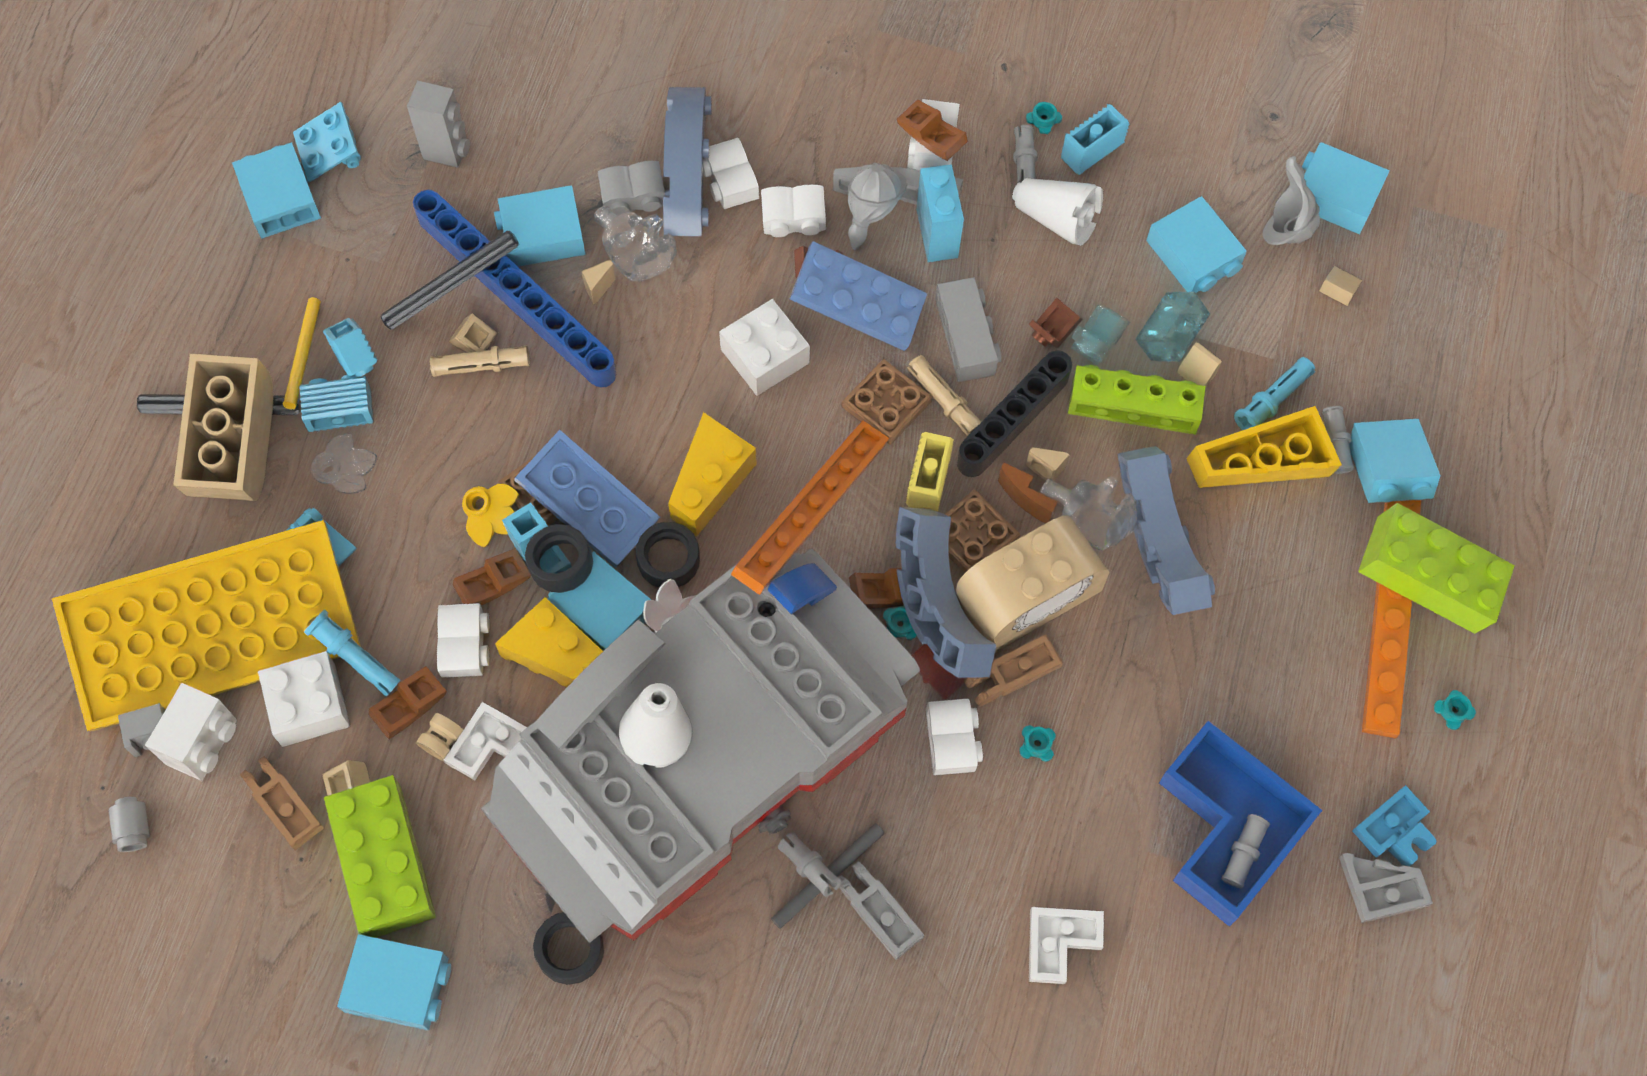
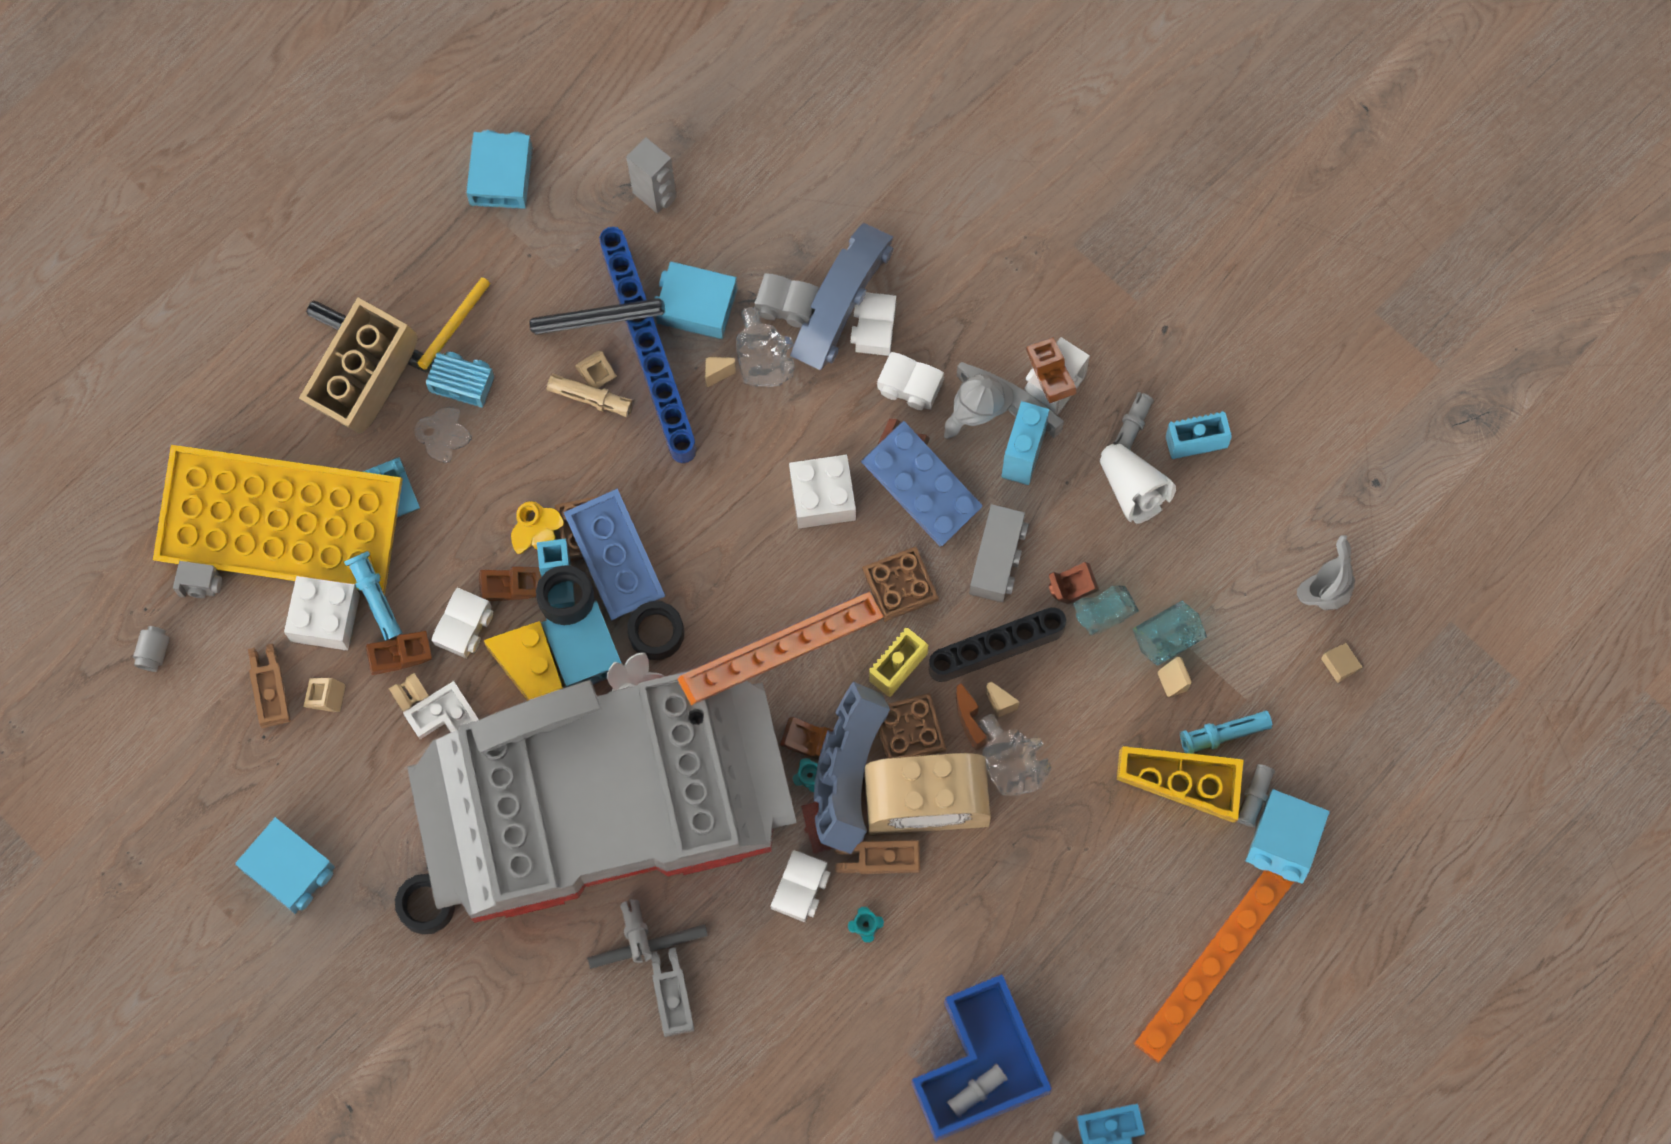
camera: 30 degrees right, 5 degrees up
(192, 732) = (227, 600): white brick -> none
(326, 143) = (560, 145): medium azure hinge -> none
(351, 347) = (491, 339): medium azure brick -> none
(379, 857) = (319, 765): lime brick -> none
(655, 727) = (559, 773): white cone -> none
(710, 474) = (721, 579): yellow wedge -> none
(775, 821) = (628, 884): dark grey plate -> none
(801, 587) = (733, 712): blue slope -> none
(953, 405) = (951, 613): tan pin -> none
(1046, 110) = (1176, 387): teal plate -> none
(1054, 932) = (797, 1077): white plate -> none
(1136, 399) = (1104, 680): lime brick -> none
(1160, 533) = (1059, 803): sand blue brick -> none
(1196, 246) = (1233, 571): medium azure brick -> none
(1343, 186) = (1390, 575): medium azure brick -> none
(1436, 568) = (1266, 943): lime brick -> none
(1459, 701) = (1224, 1057): teal plate -> none

